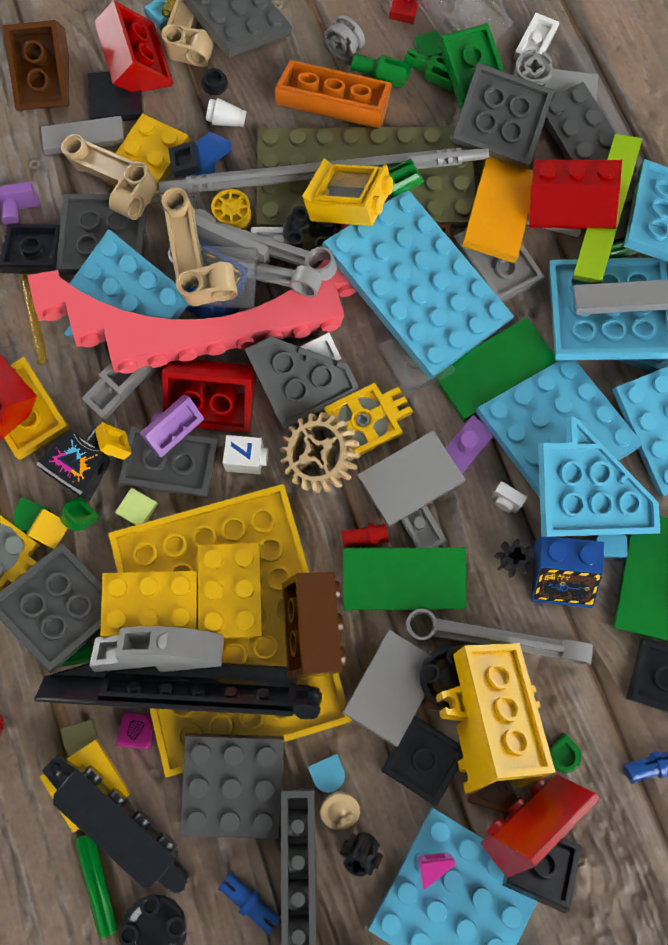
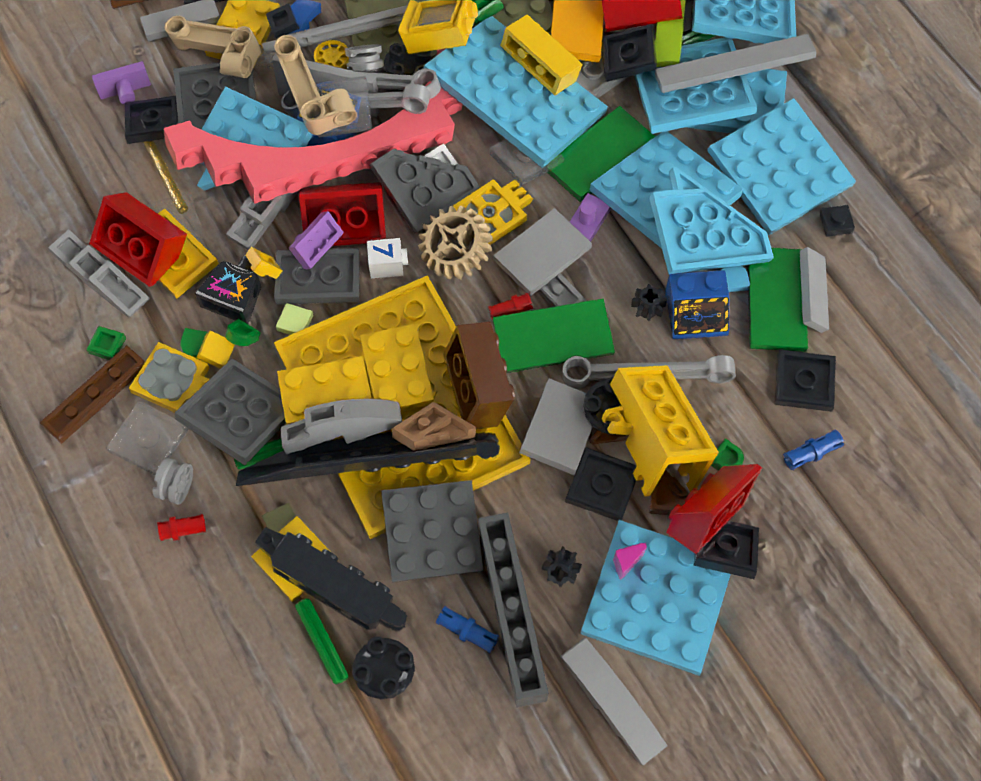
camera: 10 degrees left, 10 degrees down
(136, 731) = (333, 506): dark pink slope -> none
(251, 676) = (432, 428): none -> medium nougat wing
(263, 217) = (365, 60): none -> light grey wheel
(328, 774) = (519, 510): medium azure tile -> none
(339, 810) = (534, 536): tan hat -> none
(452, 248) = (541, 54): none -> yellow brick
(508, 498) = (633, 254): white plate -> none
(549, 259) = (629, 52): none -> black tile

